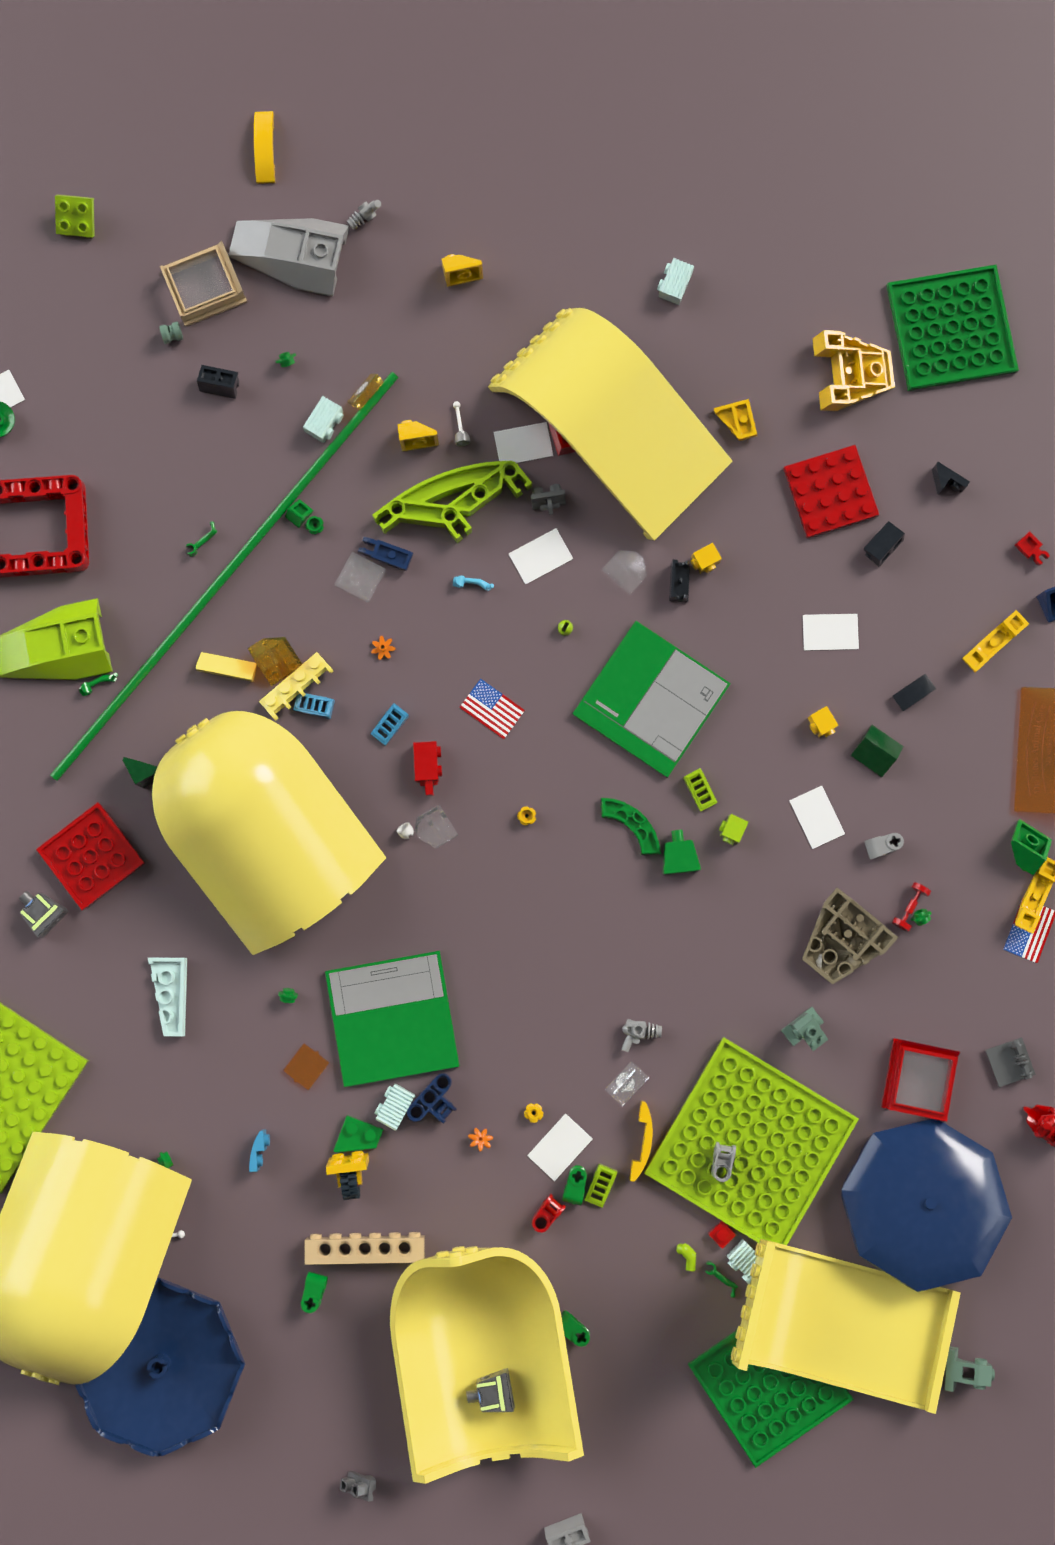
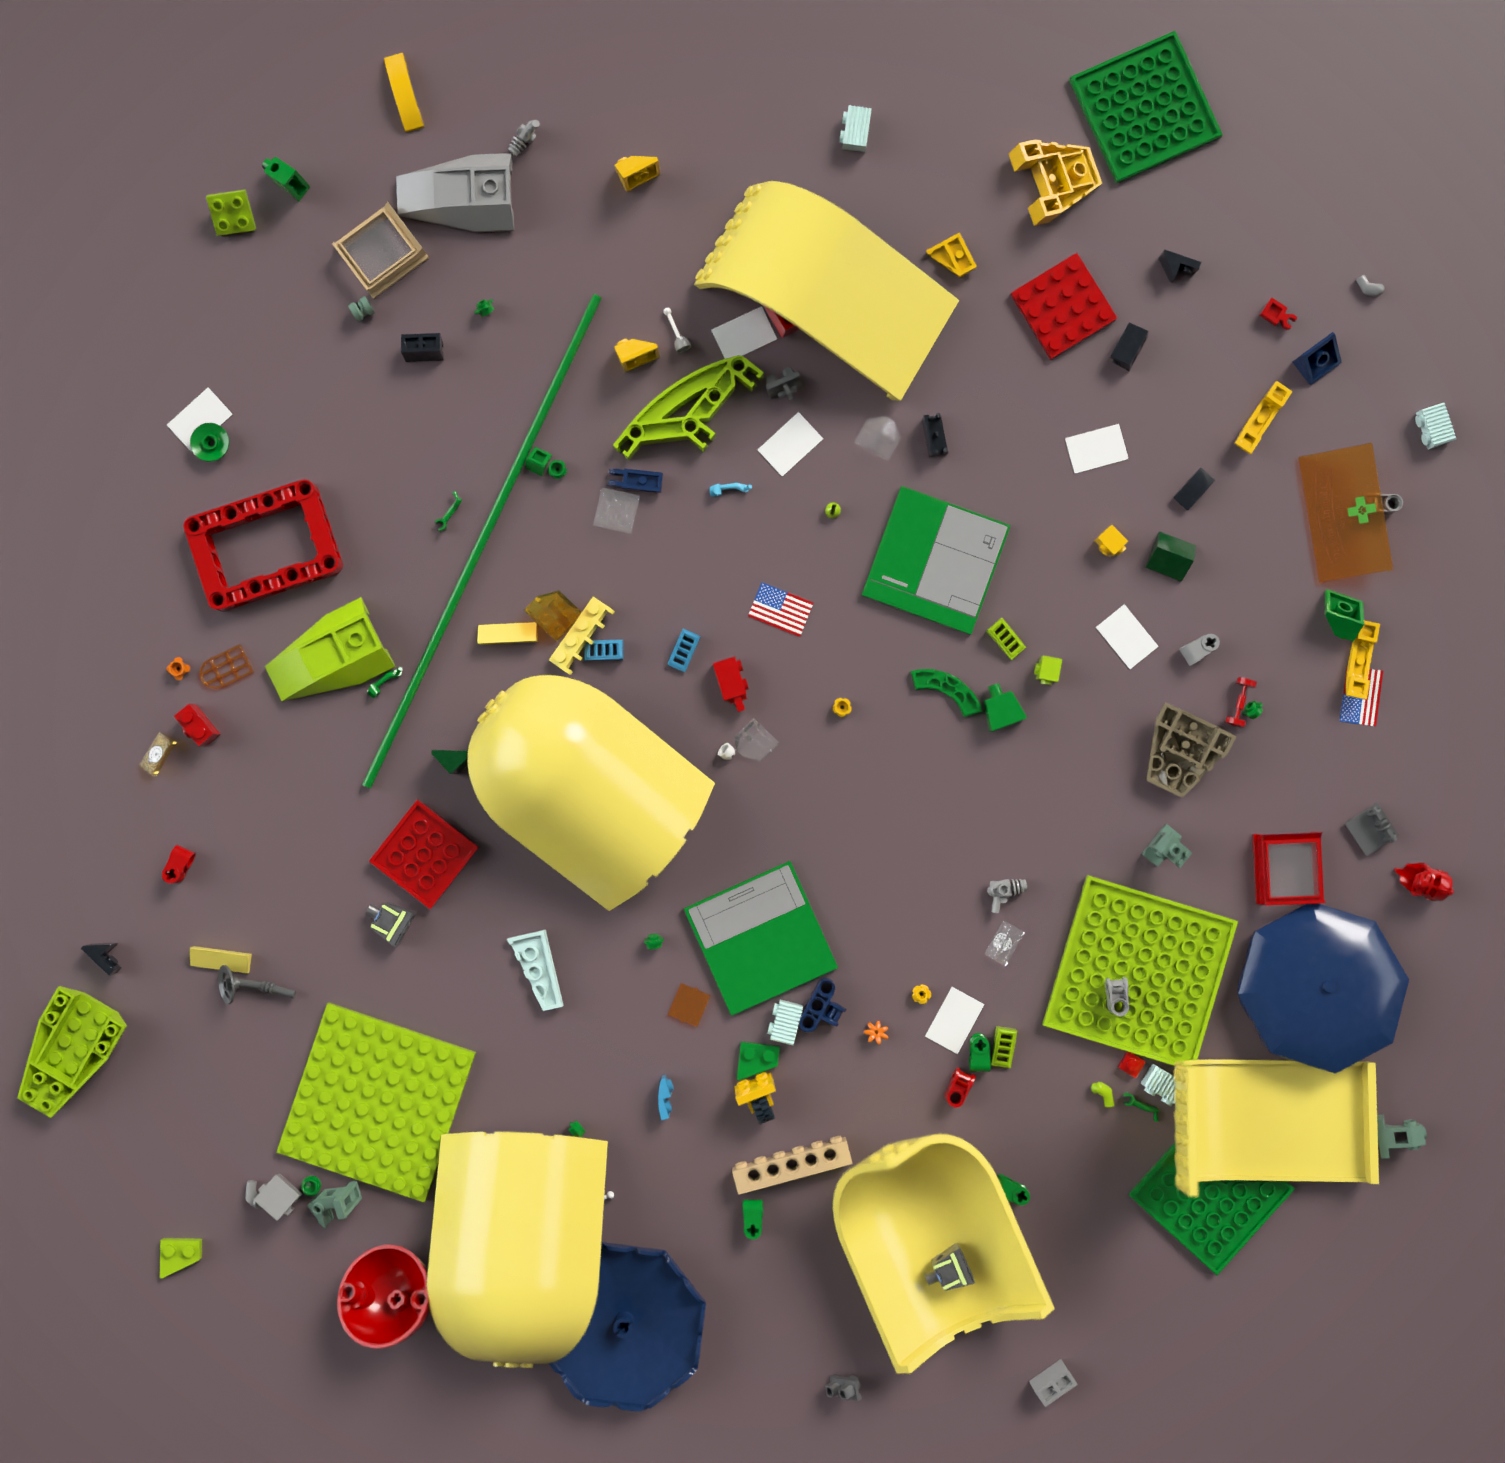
camera: 10 degrees left, 5 degrees up
(131, 191) = (281, 175): none -> green torso
(323, 419) = (538, 360): light aqua brick -> none
(365, 391) = (572, 320): clear yellow slope -> none
(385, 651) = (660, 578): orange plant -> none
(638, 1165) = (1034, 1020): yellow slope -> none
(706, 559) = (956, 406): yellow brick -> none

